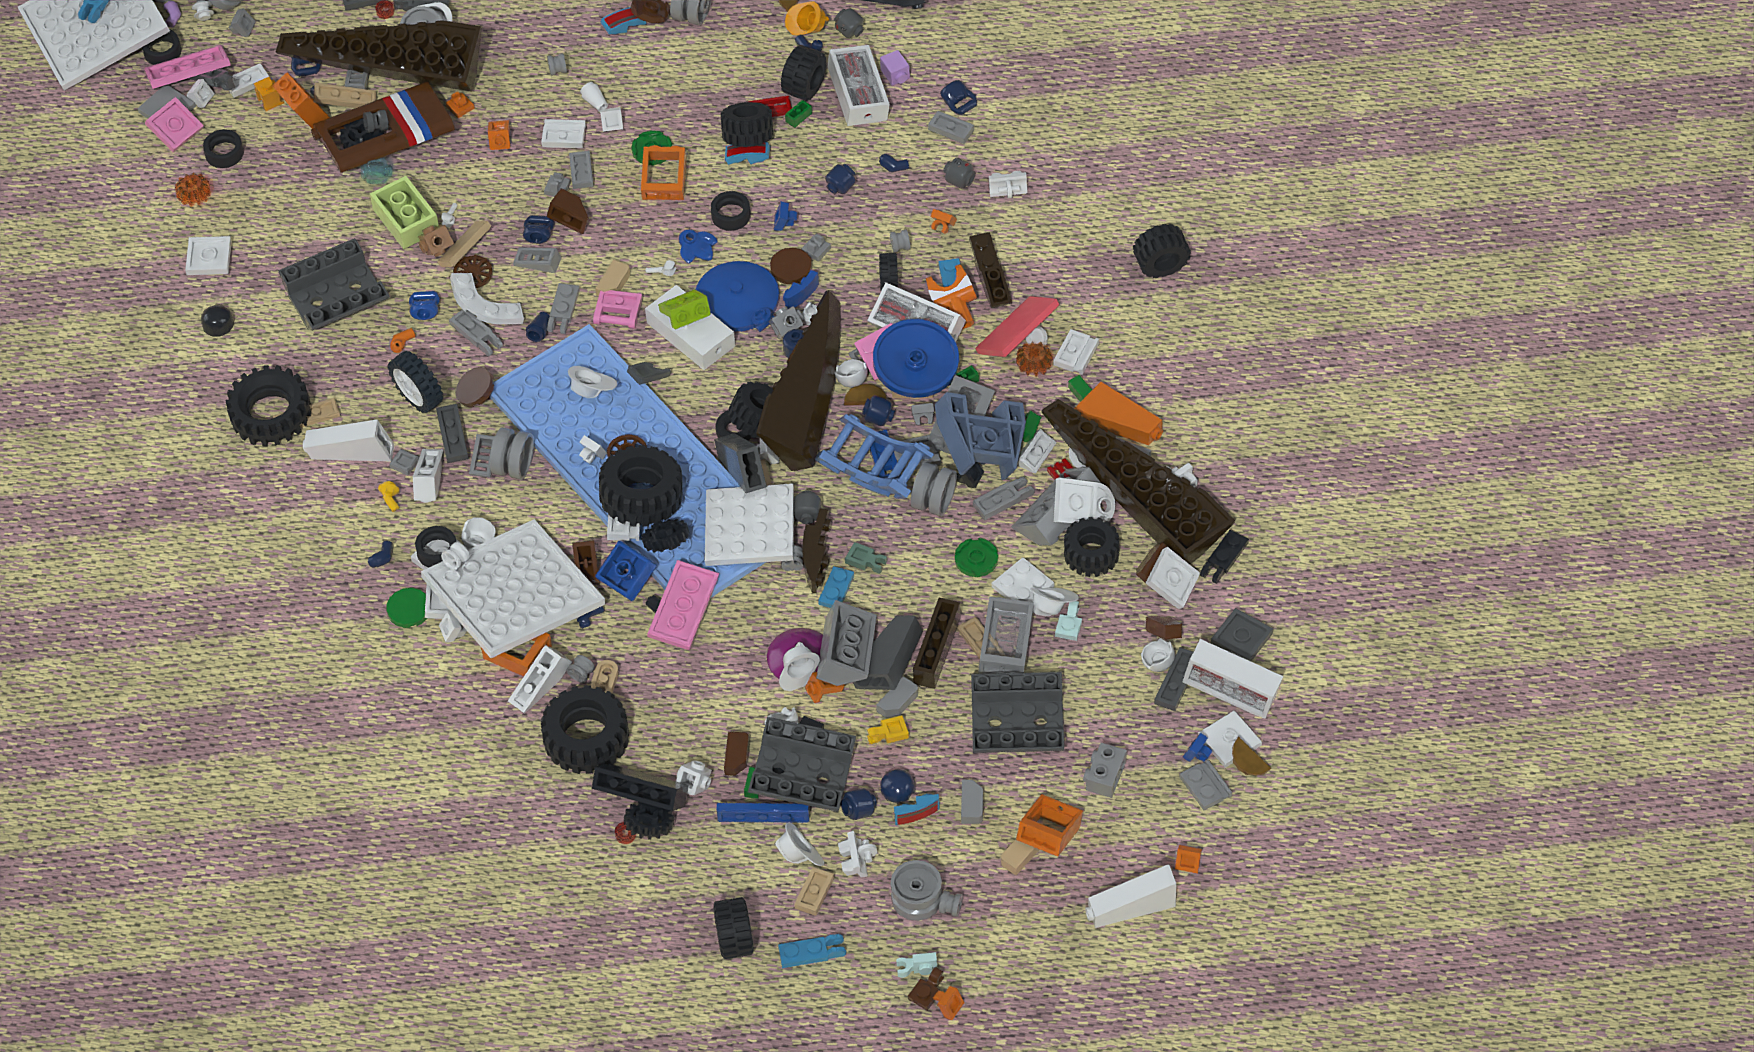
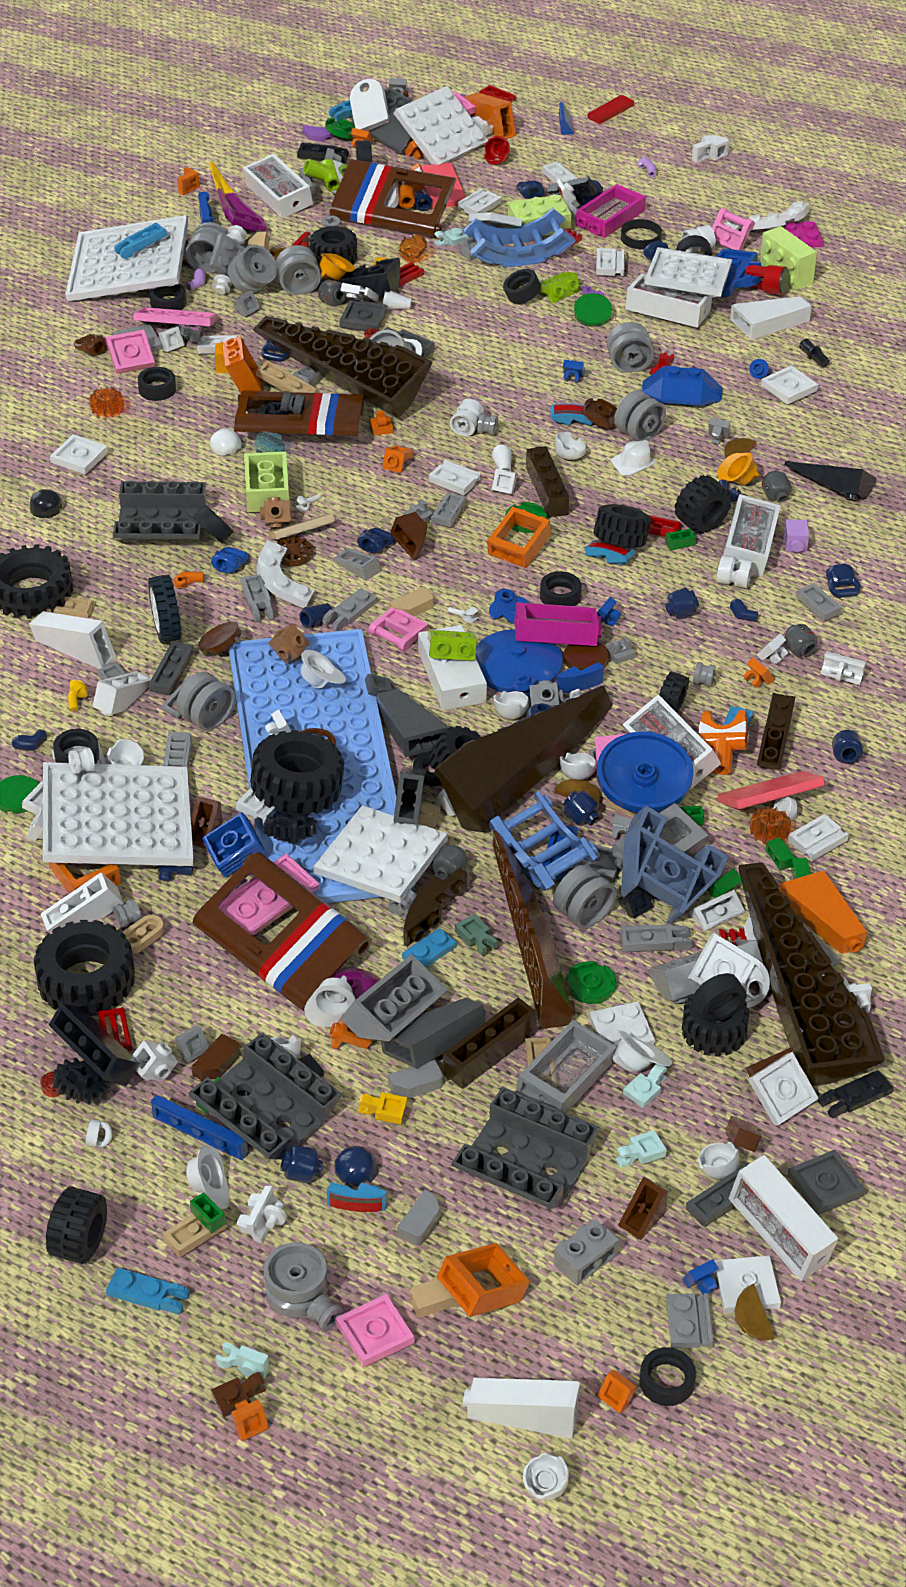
camera: 25 degrees right, 10 degrees down
(131, 131) = (91, 344): none -> reddish brown piece
(332, 185) = (225, 442): none -> white hair
(390, 277) = (213, 523): none -> black tyre
(510, 500) = (175, 743): none -> light grey slope
(534, 65) = (466, 417): none -> white wheel
(545, 367) = (289, 643): none -> medium nougat brick
(627, 756) = (111, 1013): none -> red tile
(641, 55) = (569, 448): none -> white hair
(650, 104) = (547, 482): none -> dark brown brick
(686, 854) = (93, 1132): none -> white tile
(692, 397) = (409, 723): none -> dark grey slope
(706, 45) = (633, 458): none -> white piece
(709, 750) = (192, 1043): none -> light grey tile
(748, 635) = (303, 952): none -> reddish brown piece
(752, 247) = (557, 624): none -> dark pink piece
(765, 336) = (511, 704): none -> white hair
(819, 872) = (207, 1212): none -> green piece
(858, 128) = (734, 571): none -> white wheel
(910, 540) = (534, 941): none -> reddish brown wedge
(940, 191) = (774, 649): none -> white tile
(993, 898) = (374, 1330): none -> bright pink plate
(1053, 258) = (847, 746): none -> dark blue head
(1054, 380) = (779, 853): none -> green piece
(1093, 528) = (722, 985): none -> black tyre
(1097, 671) = (643, 1147): none -> light aqua plate
(1127, 718) = (644, 1209): none -> reddish brown slope
(1176, 936) = (546, 1472): none -> white hair
(1210, 846) = (662, 1395): none -> black tyre

